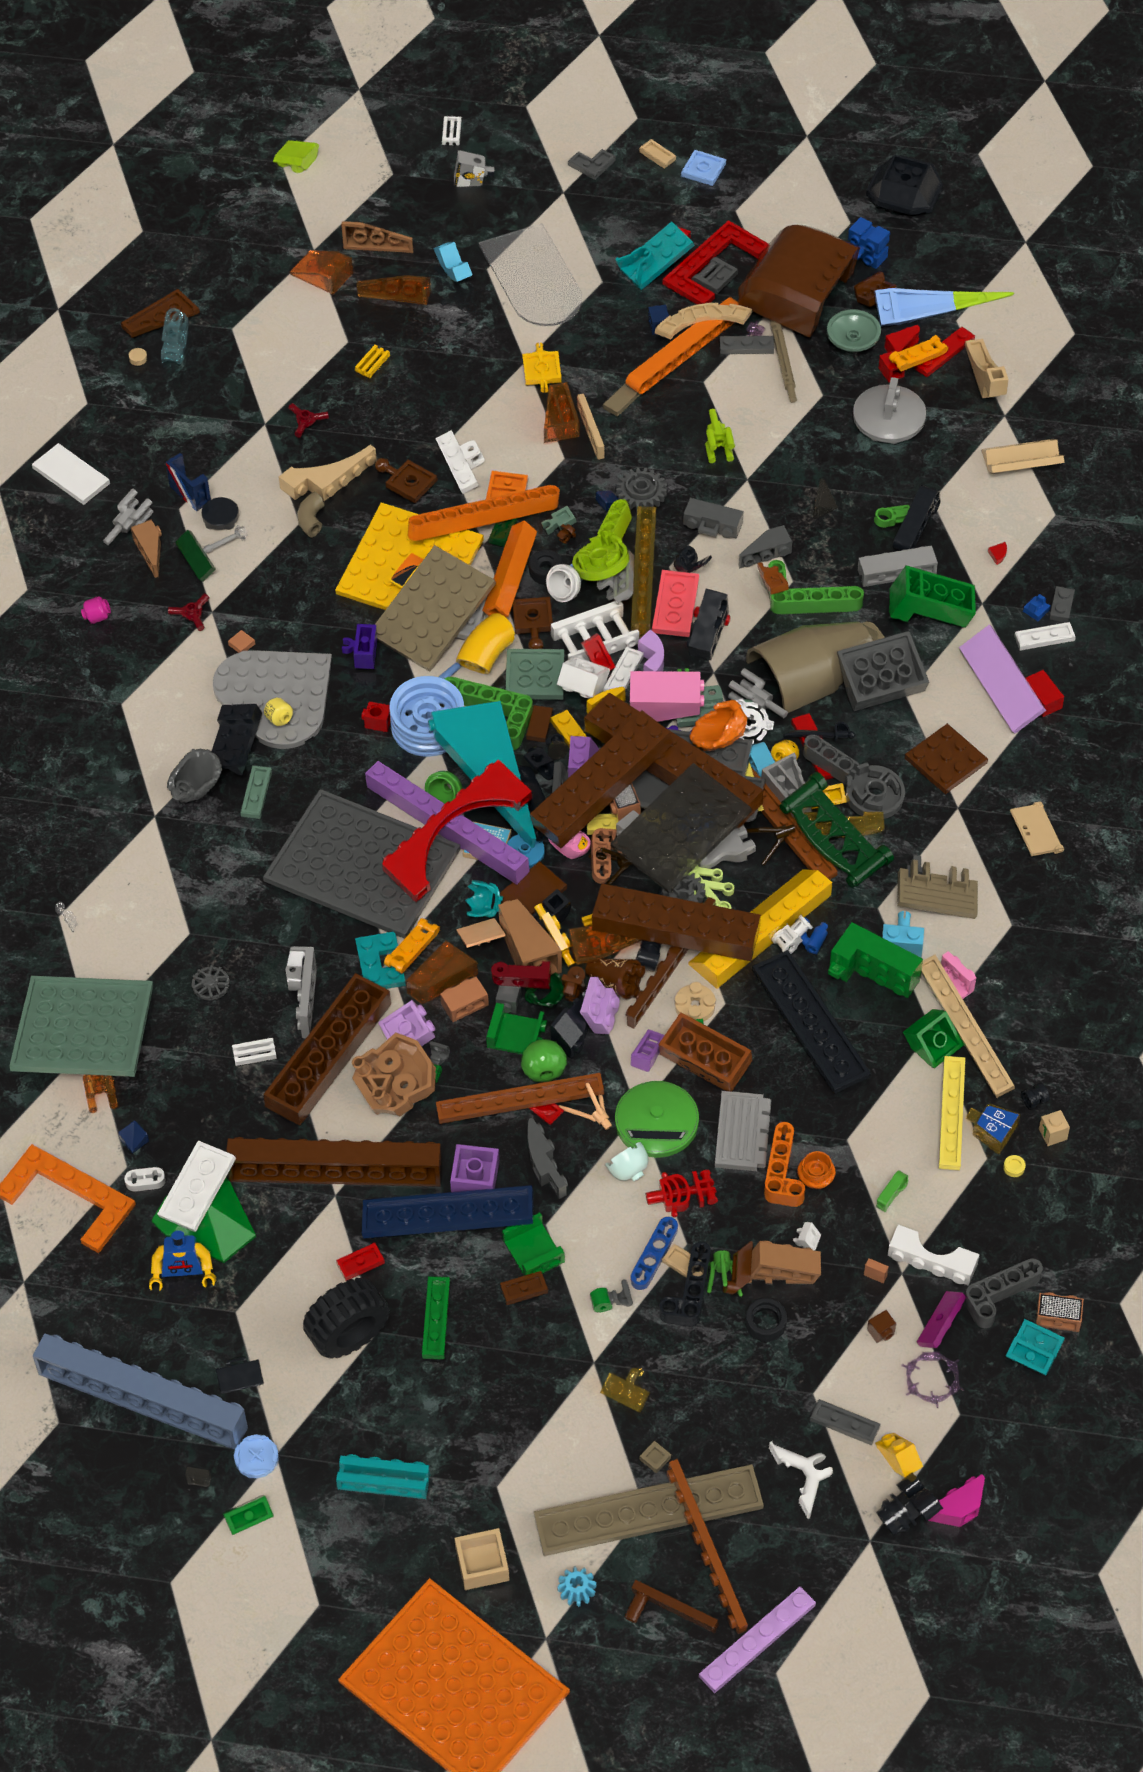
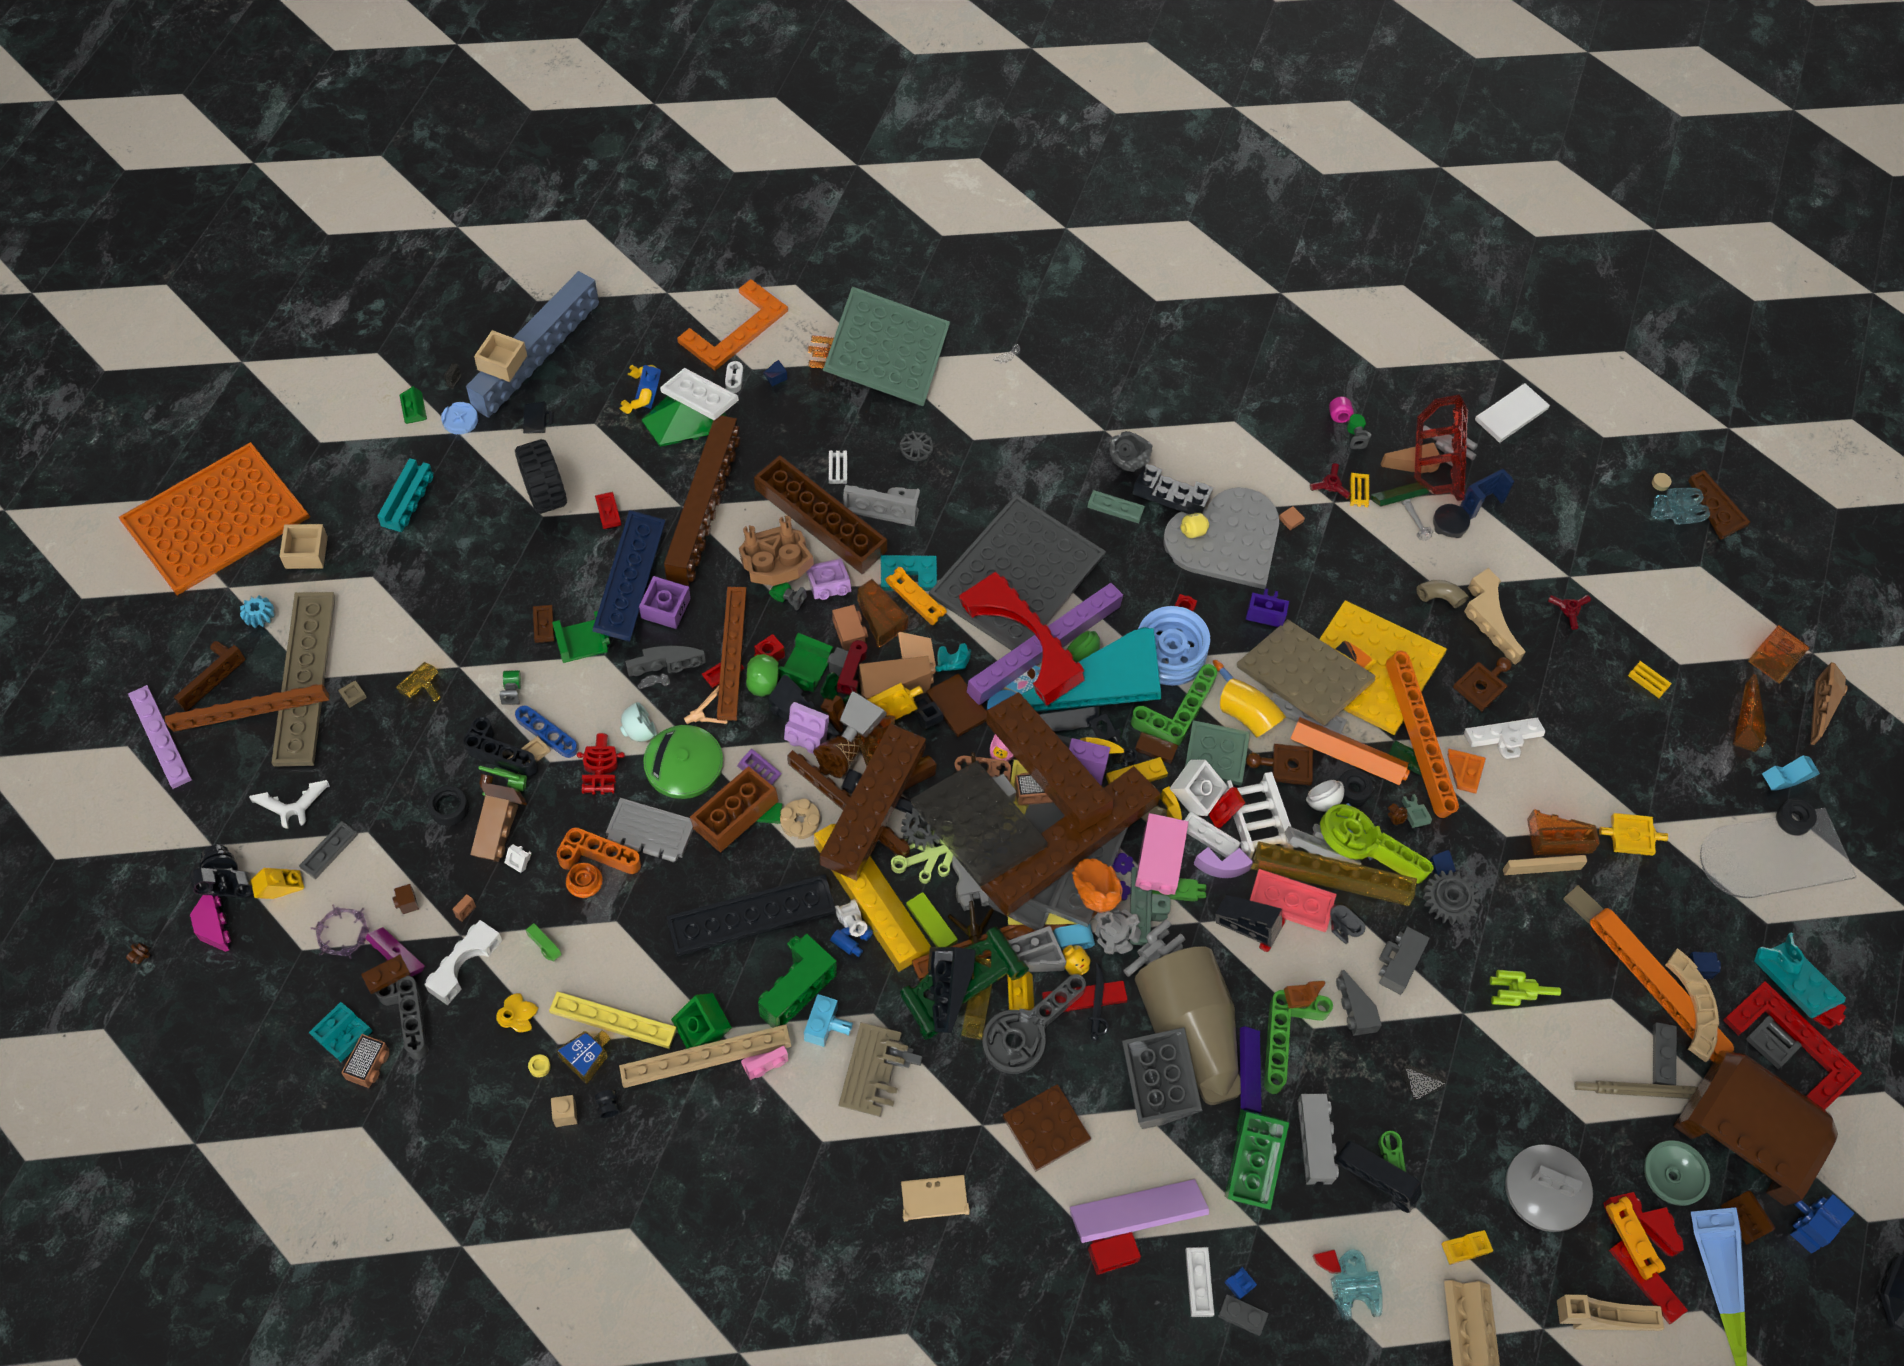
camera: 95 degrees right, 5 degrees up
(114, 595) = (1356, 427): none -> leg
(137, 500) = (1459, 445): none -> clear red plate
(192, 1391) = (500, 356): none -> tan piece
(193, 592) = (1358, 501): none -> yellow tile
(436, 1318) = (537, 555): green plate -> none
(493, 250) = (1802, 808): none -> black tyre
(506, 1058) = (770, 644): none -> red brick
(559, 755) = (1114, 748): none -> yellow slope
(568, 1170) = (651, 680): none -> clear piece
(586, 948) = (860, 717): none -> light grey torso
(754, 329) = (1686, 1064): clear purple plate -> none
(774, 875) = (931, 921): none -> lime tile
(840, 835) = (951, 975): none -> black wedge
(861, 616) = (1250, 1069): none -> dark purple tile
(955, 464) = (1467, 1247): none -> yellow slope
(969, 1197) = (519, 1012): none -> yellow plate
(972, 1310) = (385, 974): none -> reddish brown plate
(1012, 1562) = (138, 953): none -> reddish brown plate
(1015, 530) = (1356, 1284): none -> clear light blue piece

